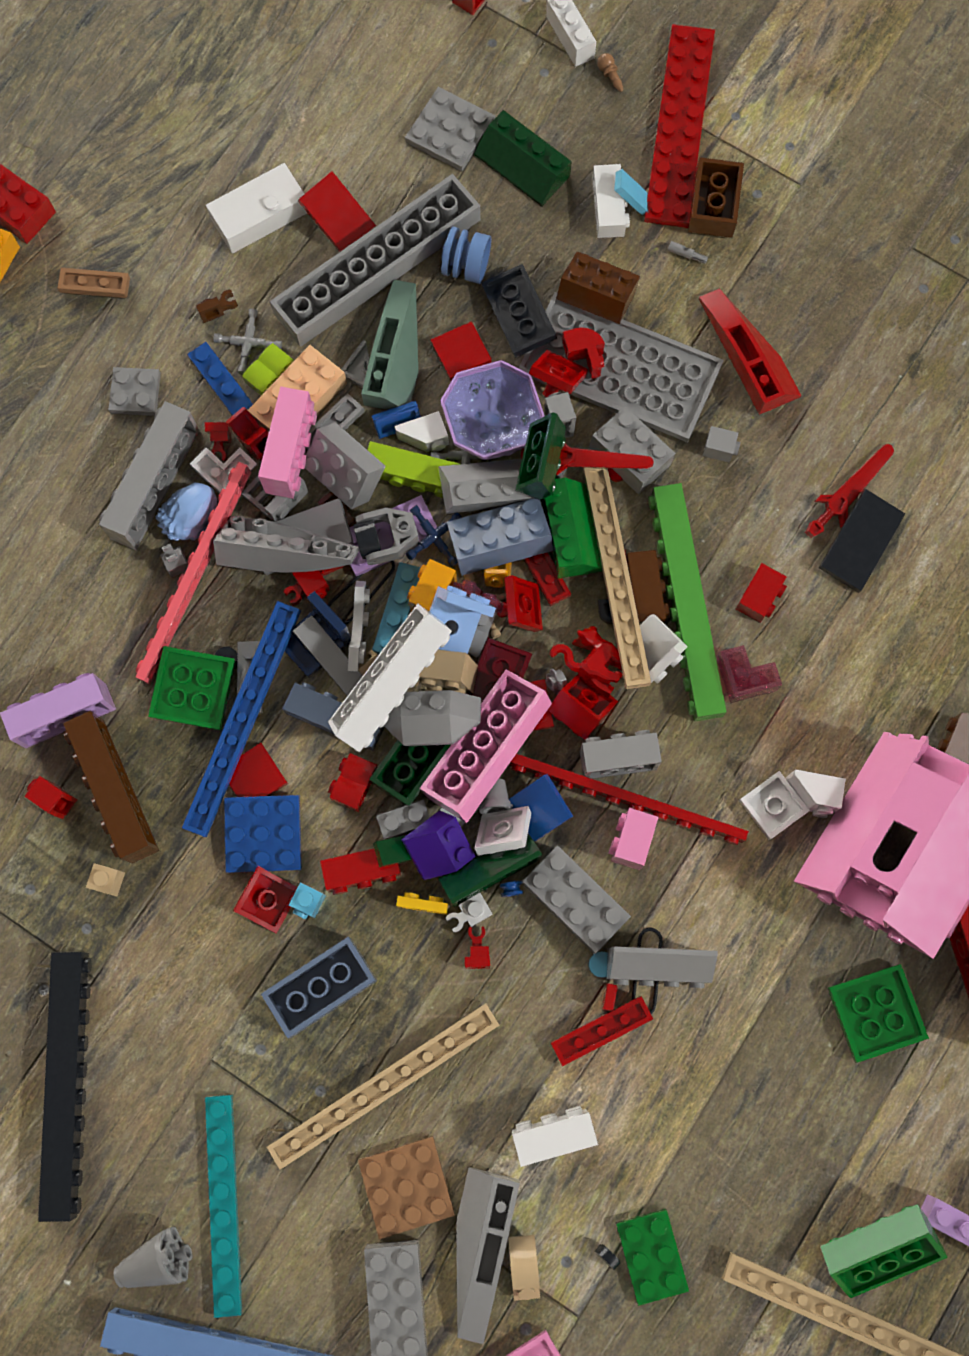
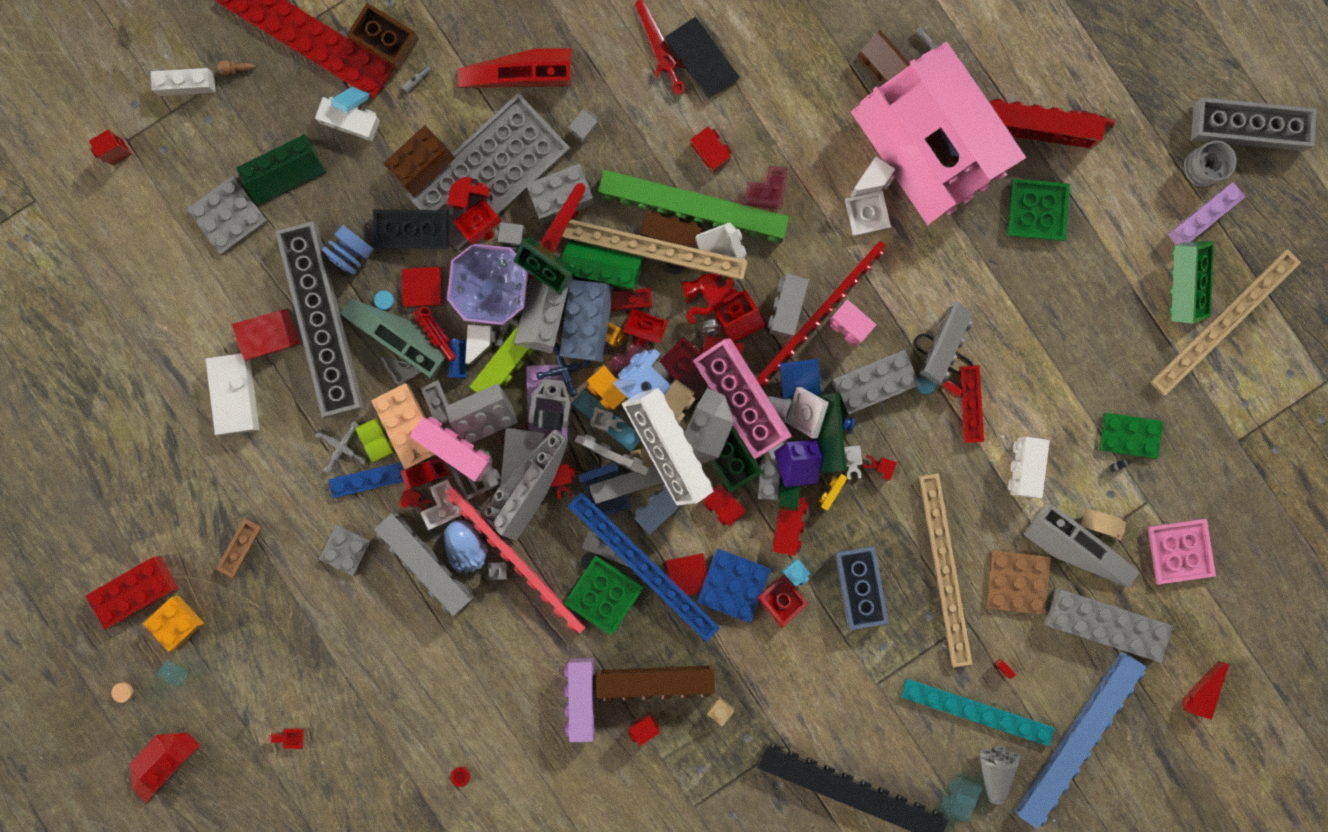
camera: 65 degrees left, 10 degrees up
(106, 1229) = (962, 798): none -> clear light blue brick
(214, 308) = (302, 465): reddish brown plate -> none
(289, 1215) = (1004, 668): none -> red tile
(393, 602) = (603, 420): none -> light grey plate
(415, 380) = (434, 332): none -> red piece
(428, 319) = (384, 300): none -> medium azure tile

